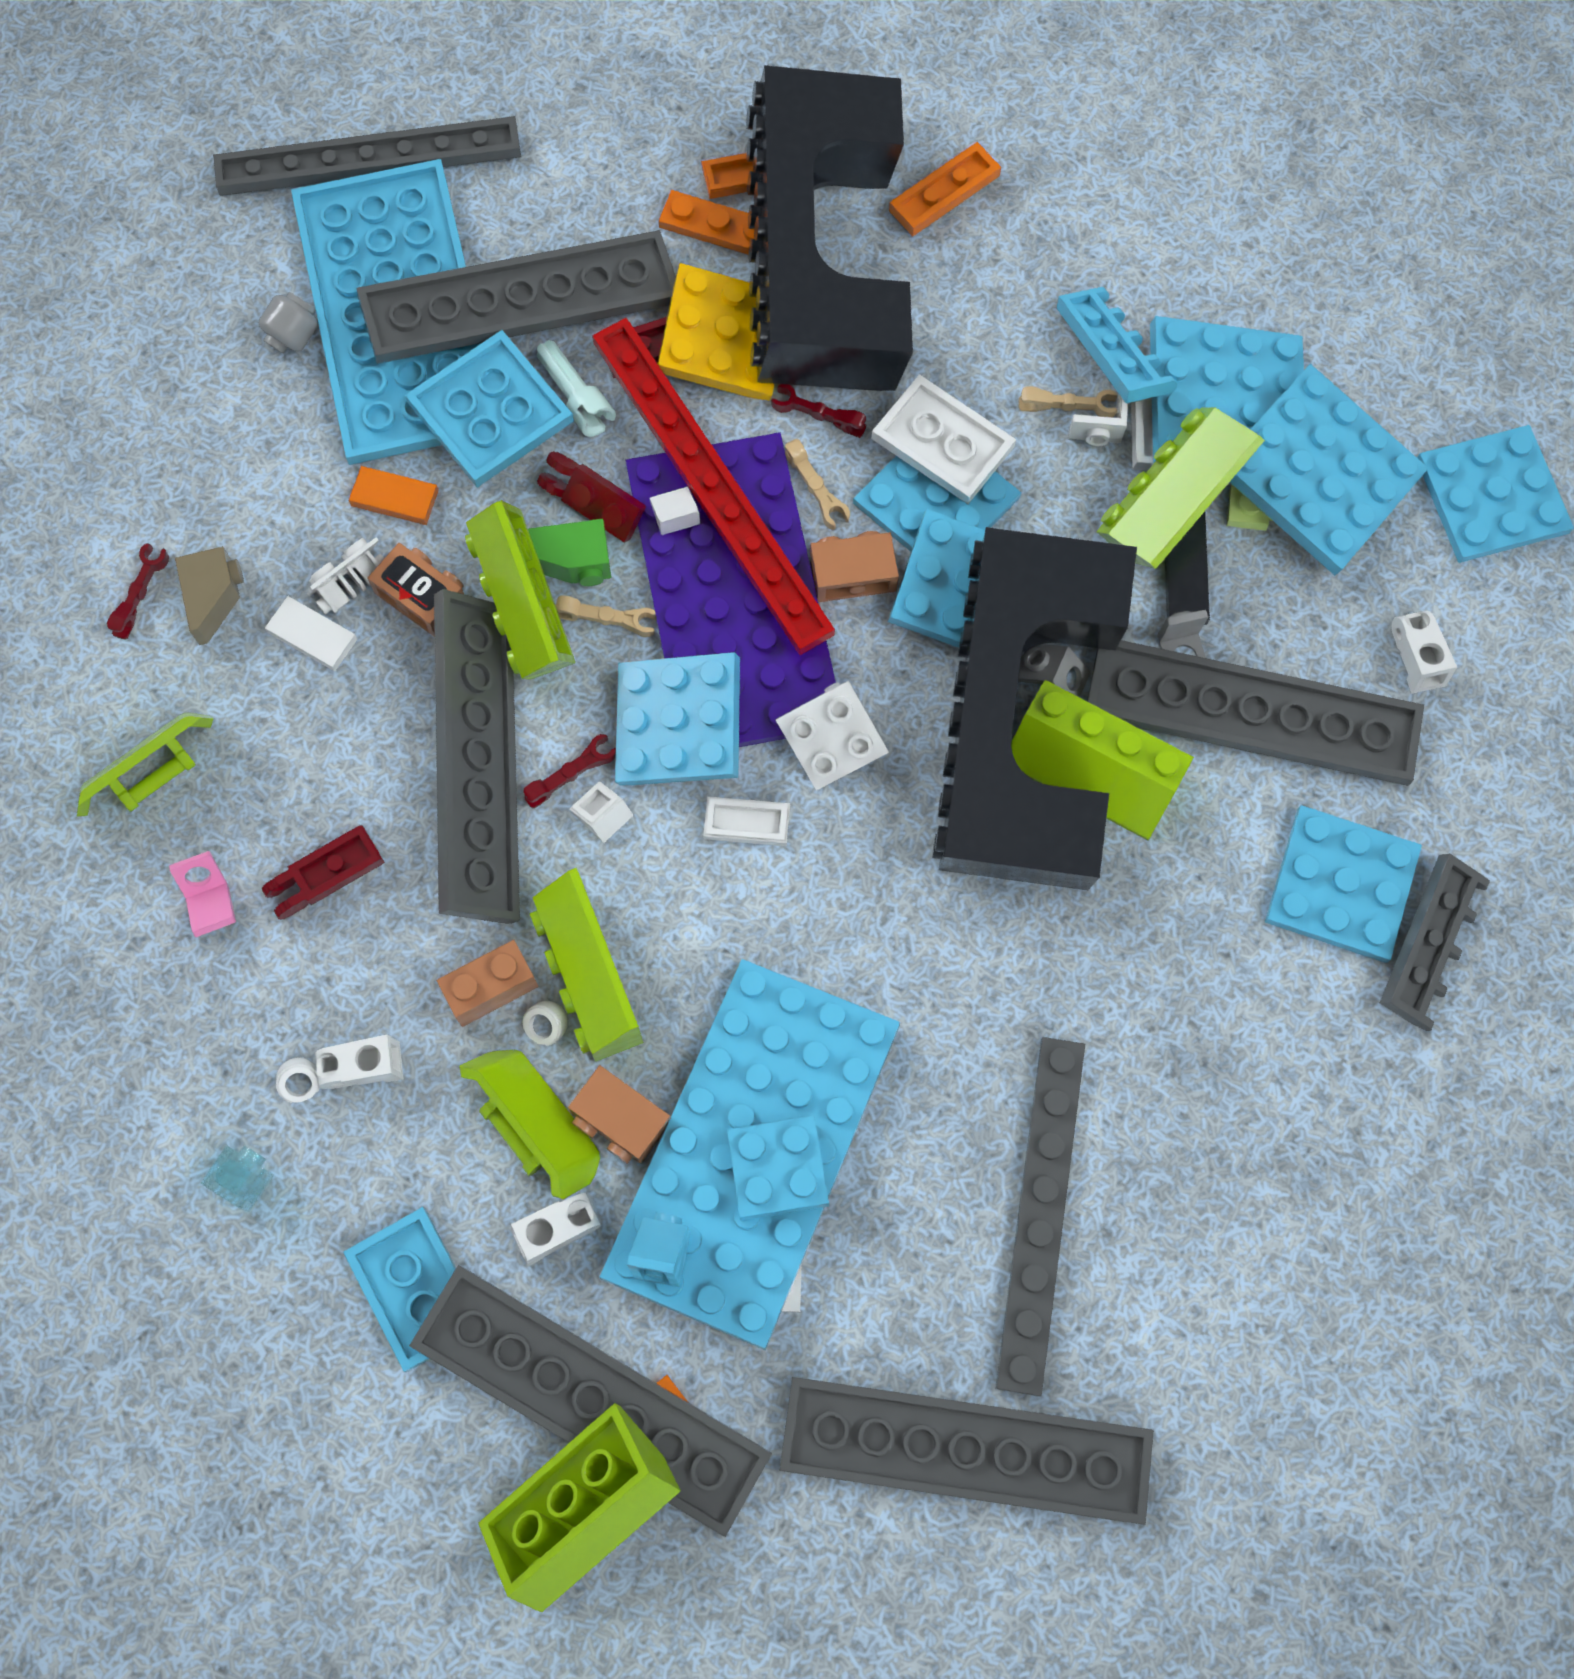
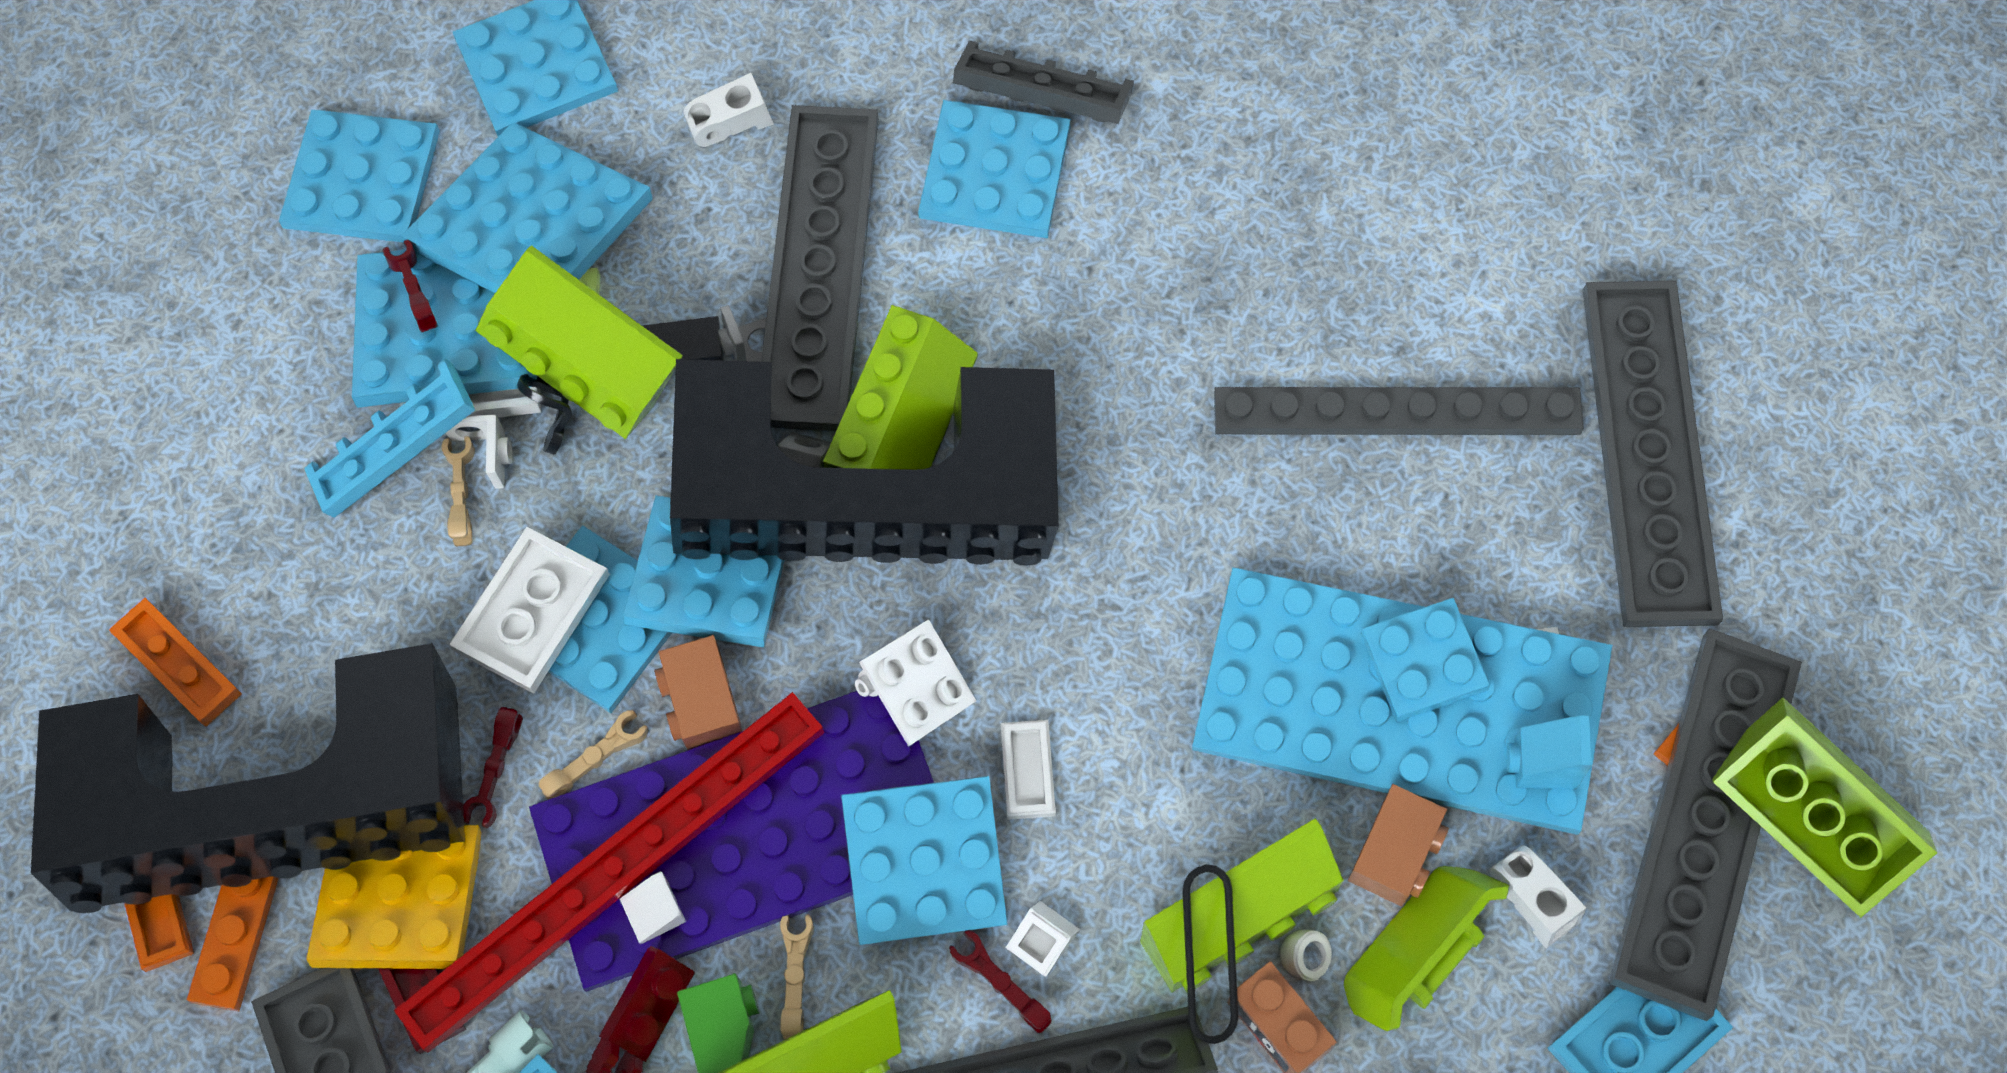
camera: 95 degrees left, 5 degrees down
(518, 939) = (1230, 949): none -> black piece
(1132, 450) = (563, 413): none -> black piece
(1233, 369) = (418, 302): none -> dark red piece
(1385, 344) = (359, 175): none -> medium azure plate

